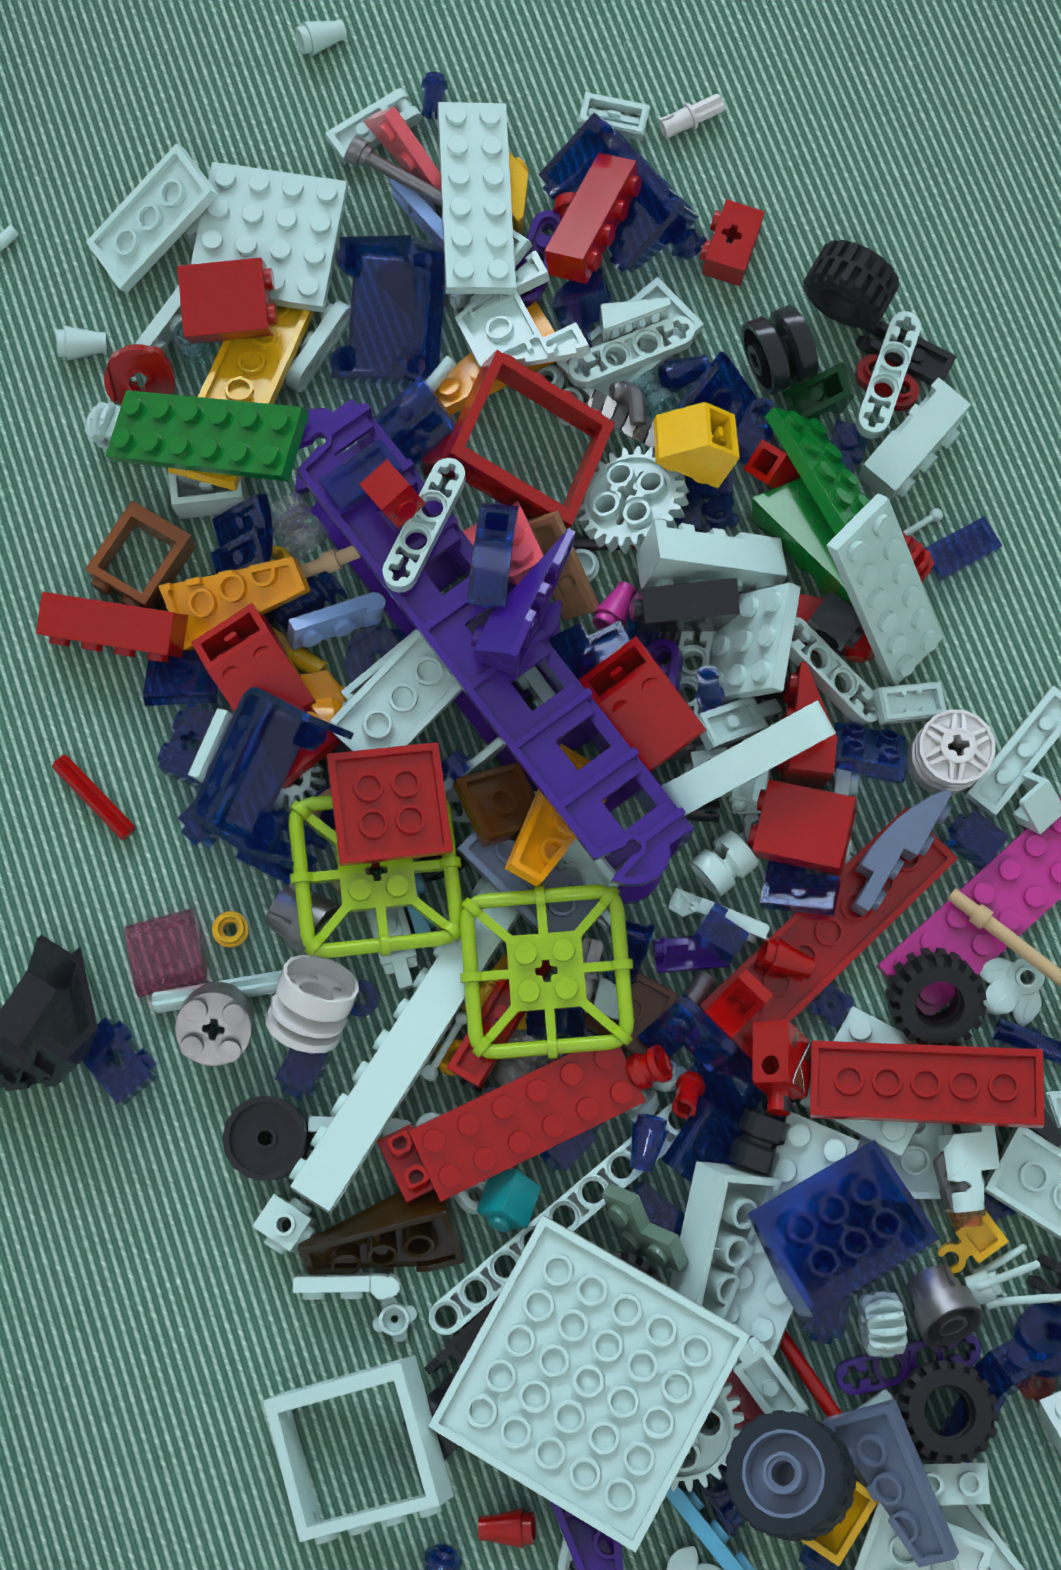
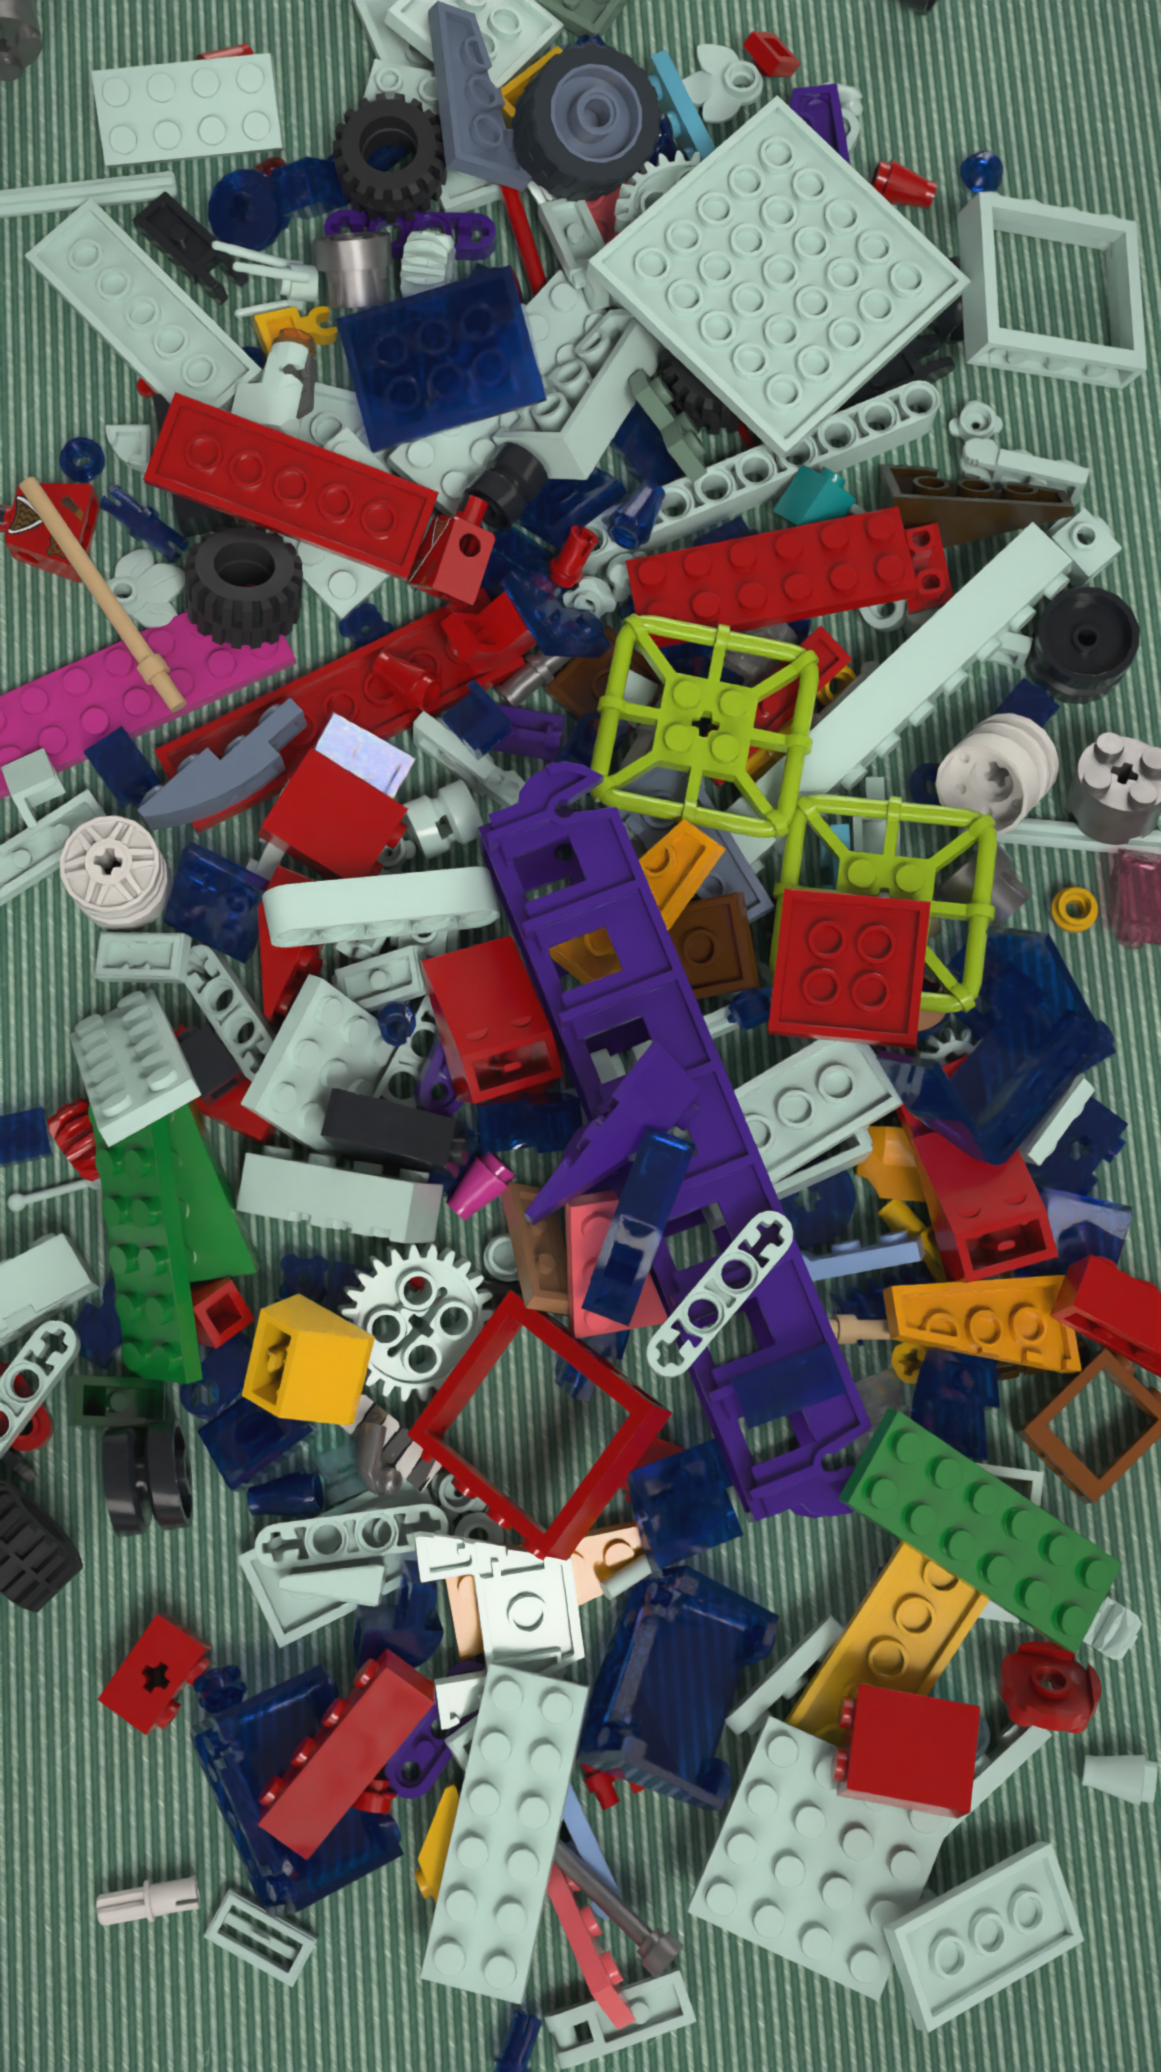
camera: 165 degrees left, 0 degrees up
(392, 494) = (754, 1336): red brick -> none
(649, 1067) = (609, 594): red wheel -> none

